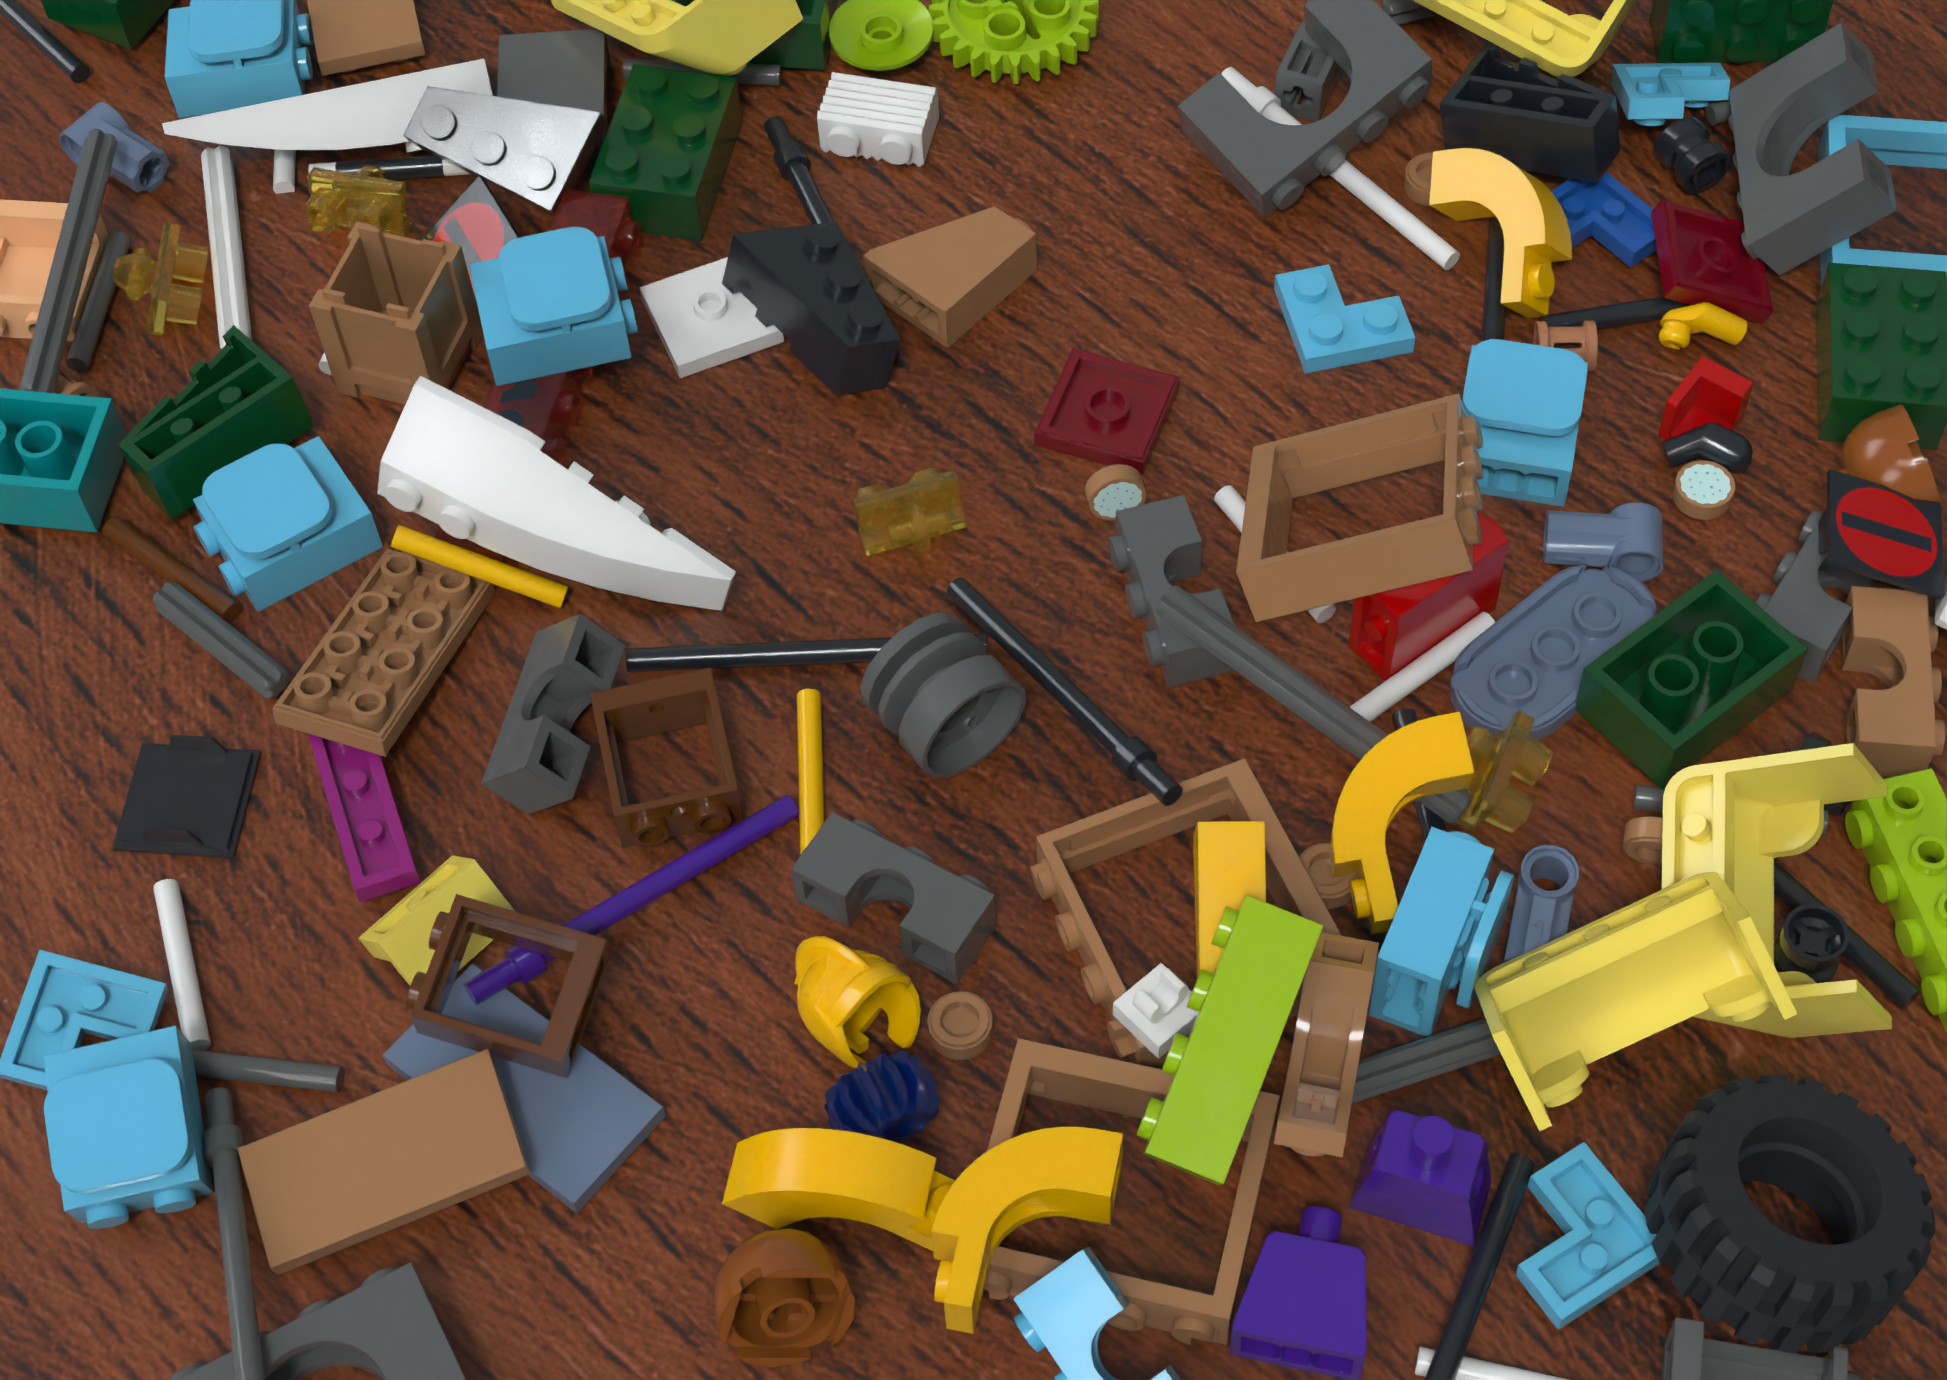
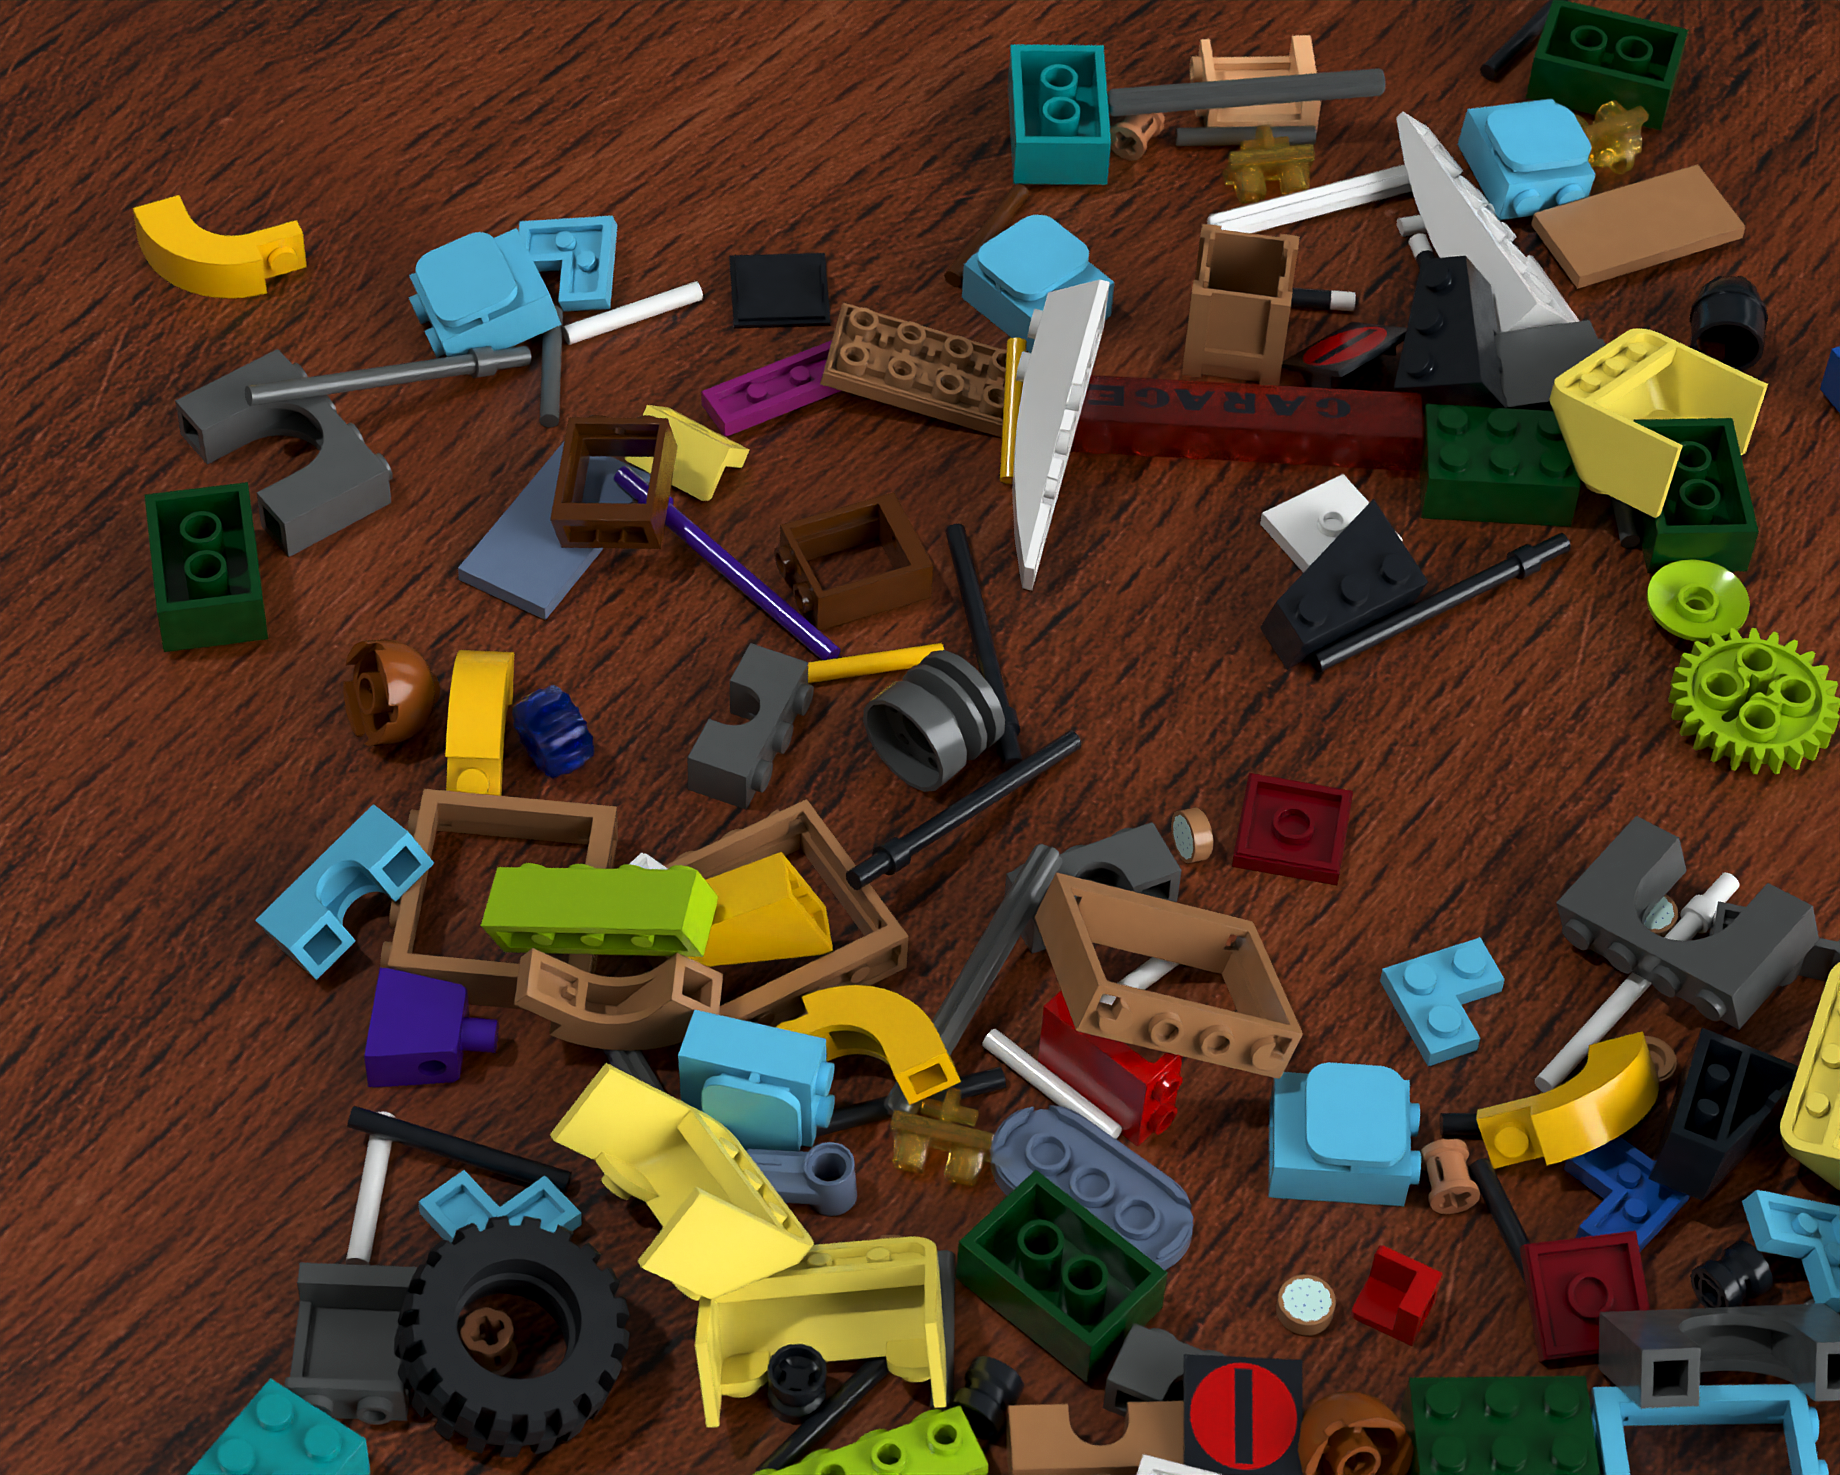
camera: 75 degrees right, 5 degrees down
(135, 159) = (1407, 93): sand blue piece -> none
(219, 417) = (1122, 226): dark green wedge -> none
(221, 640) = (925, 273): dark grey axle -> none
(361, 197) = (1383, 268): clear yellow hips -> none
(383, 1161) = (474, 448): medium nougat tile -> none
(535, 753) = (858, 475): dark grey arch -> none
(552, 305) = (1266, 393): medium azure brick -> none
(845, 992) = (643, 698): yellow helmet -> none
(878, 119) = (1586, 612): white brick -> none
(909, 512) = (1133, 688): clear yellow hips -> none
(953, 271) = (1415, 692): medium nougat slope -> none
(960, 1025) = (645, 791): medium nougat tile -> none
(1020, 1180) = (455, 788): yellow arch -> none
(1425, 1176) = (532, 1079): dark purple torso -> none
(1623, 539) = (1220, 1228): sand blue piece -> none
(1698, 318) = (1513, 1294): yellow arm -> none
(1712, 443) = (1355, 1305): black arm -> none

